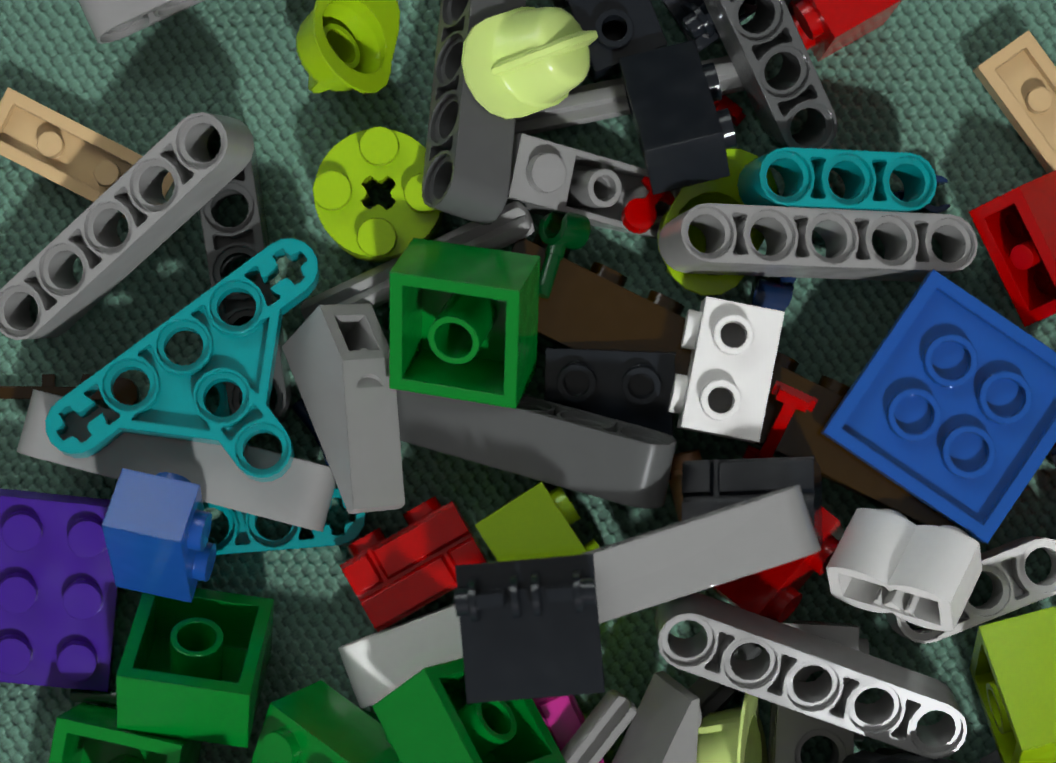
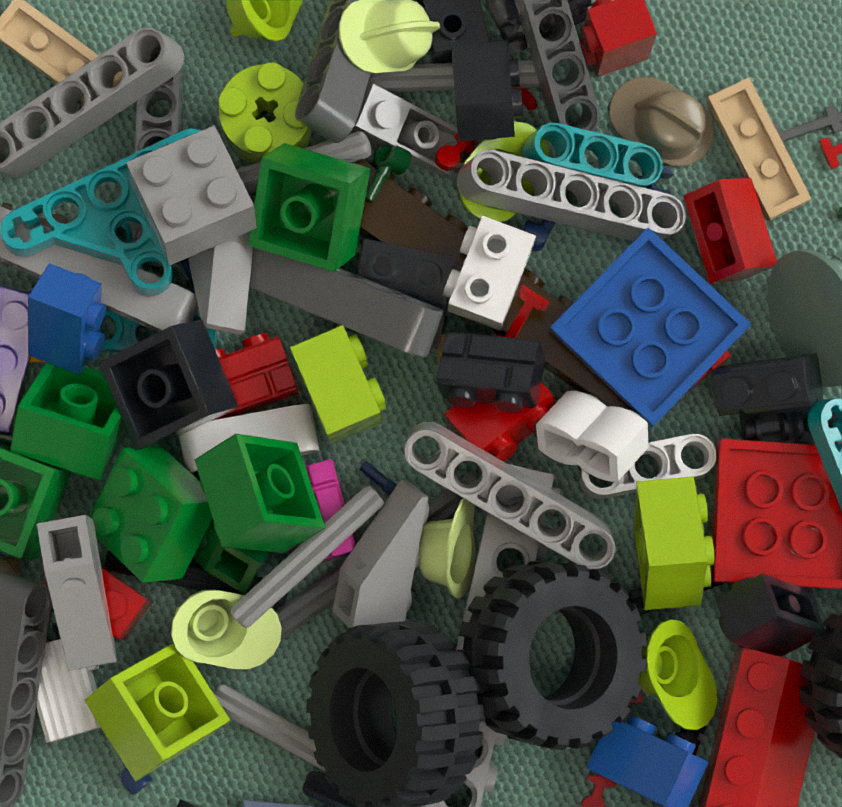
camera: 10 degrees right, 5 degrees down
(302, 339) = (192, 195): none -> light grey brick
(317, 603) = (168, 384): none -> black brick
(529, 628) = (314, 415): black hinge -> none
(632, 671) = (386, 484): none -> dark blue hand
(703, 552) = (409, 393): light grey beam -> none
(916, 107) = (662, 118): none -> dark tan piece

